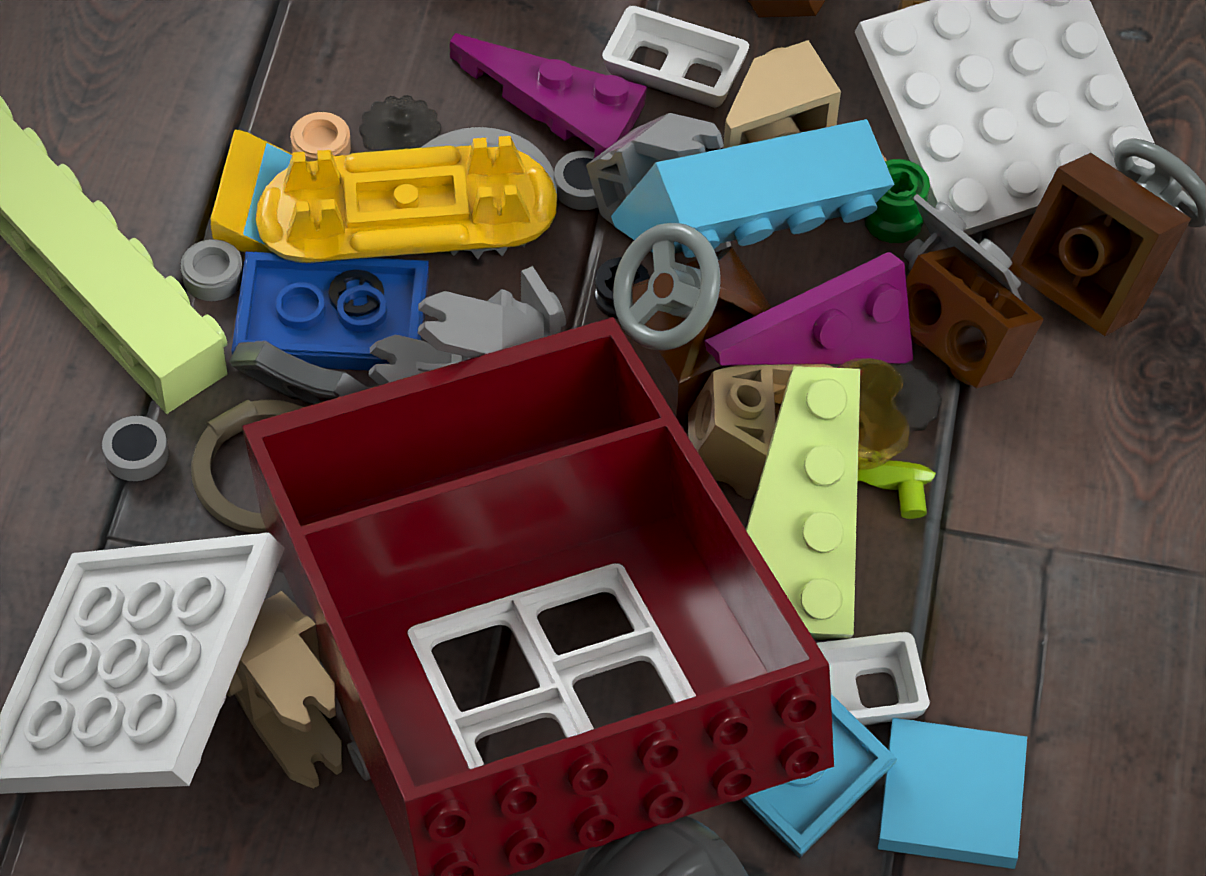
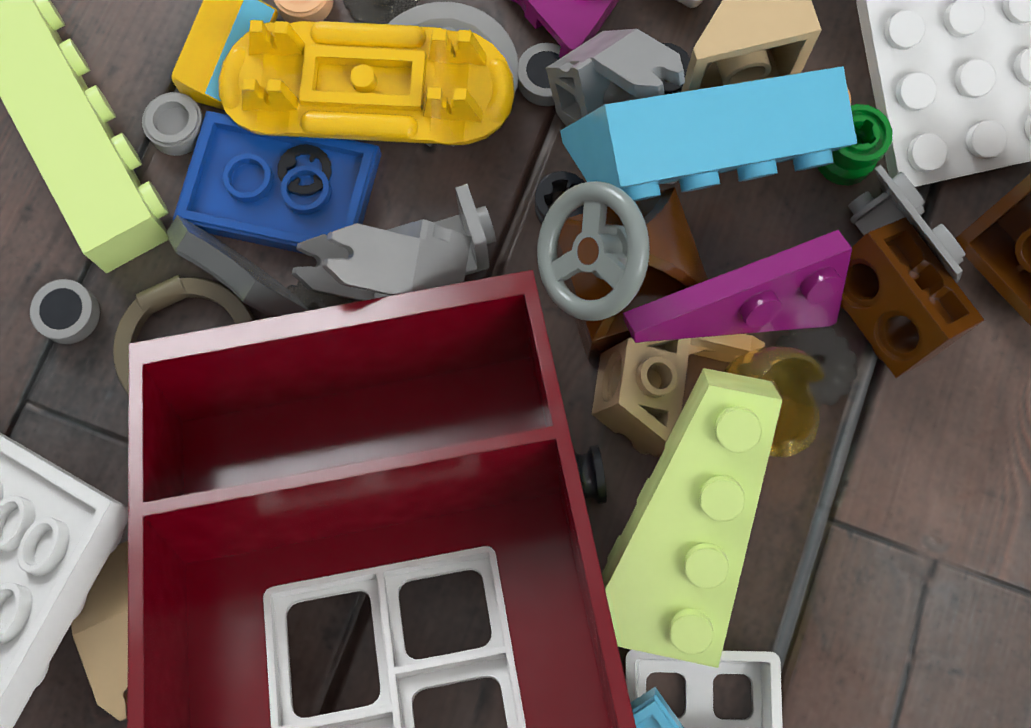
camera: 15 degrees right, 20 degrees up
(907, 479) = (808, 470): lime bar -> none

